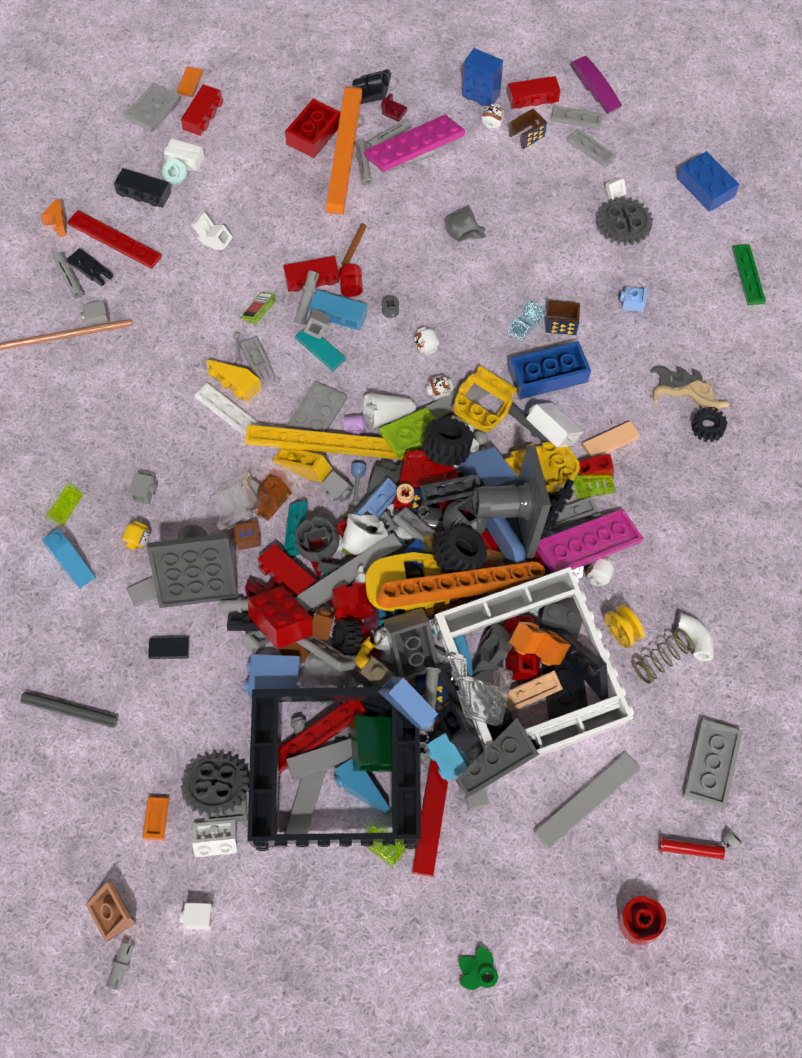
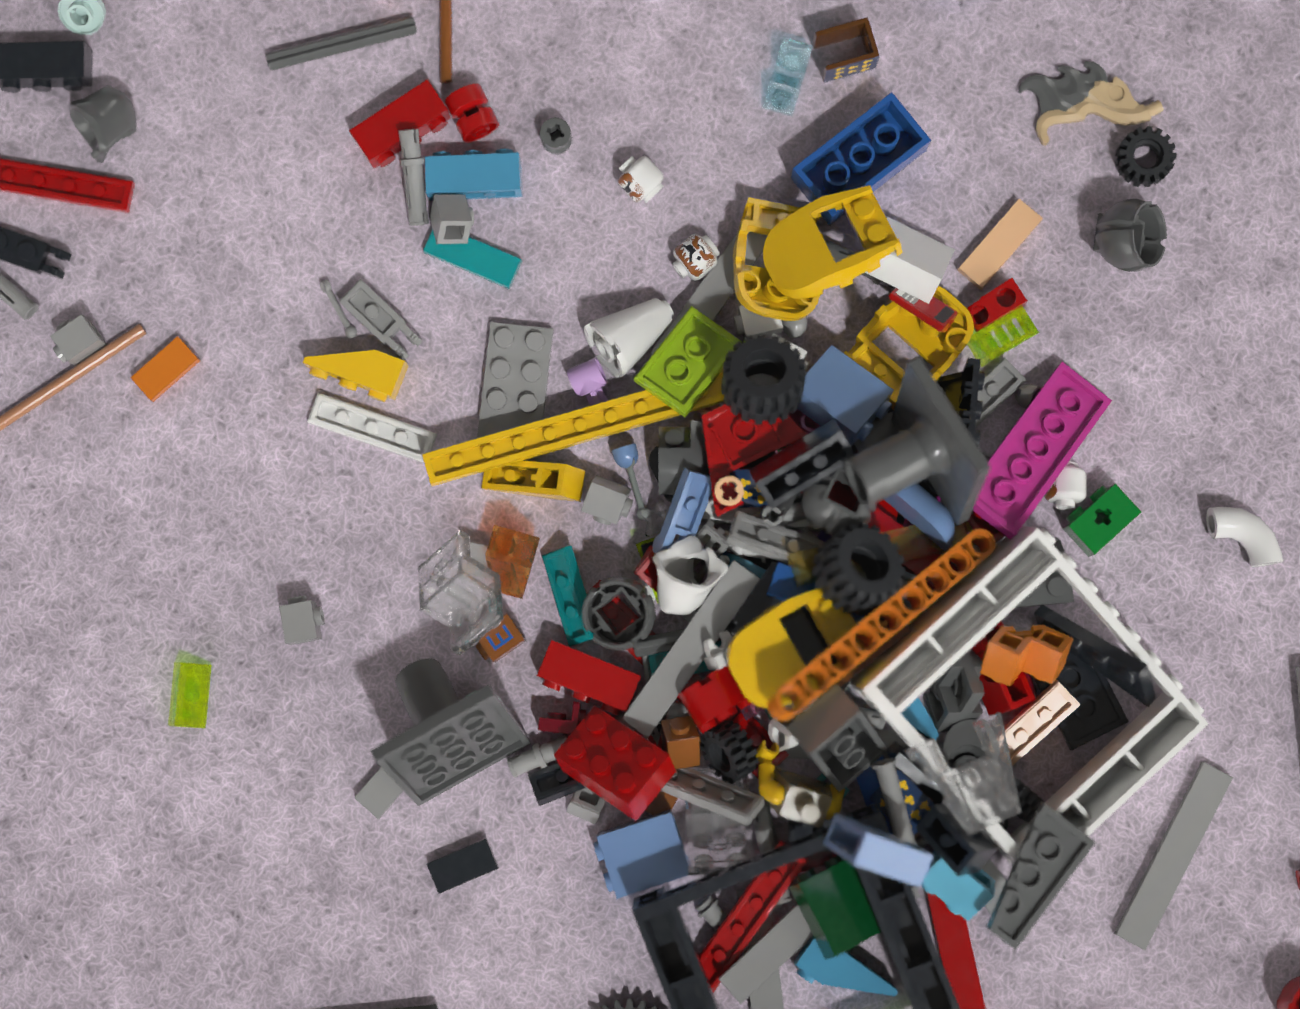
camera: 15 degrees left, 20 degrees up
(68, 558) = (241, 785): dark azure slope -> none
(133, 344) = (165, 369): none -> orange tile
(135, 535) = (328, 706): yellow head -> none
(160, 220) = (104, 119): none -> dark grey piece
(209, 234) = (200, 112): white brick -> none
(258, 308) = (339, 220): slope -> none
(296, 229) = (341, 43): none -> dark grey axle
(494, 395) = (800, 258): none -> yellow slope
(557, 454) = (934, 314): none -> slope
(619, 588) = (1118, 514): none -> green brick
(624, 625) = (1136, 566): yellow wheel -> none
(644, 666) = (1184, 623): olive piece -> none
(686, 455) = (1131, 235): none -> dark grey piece

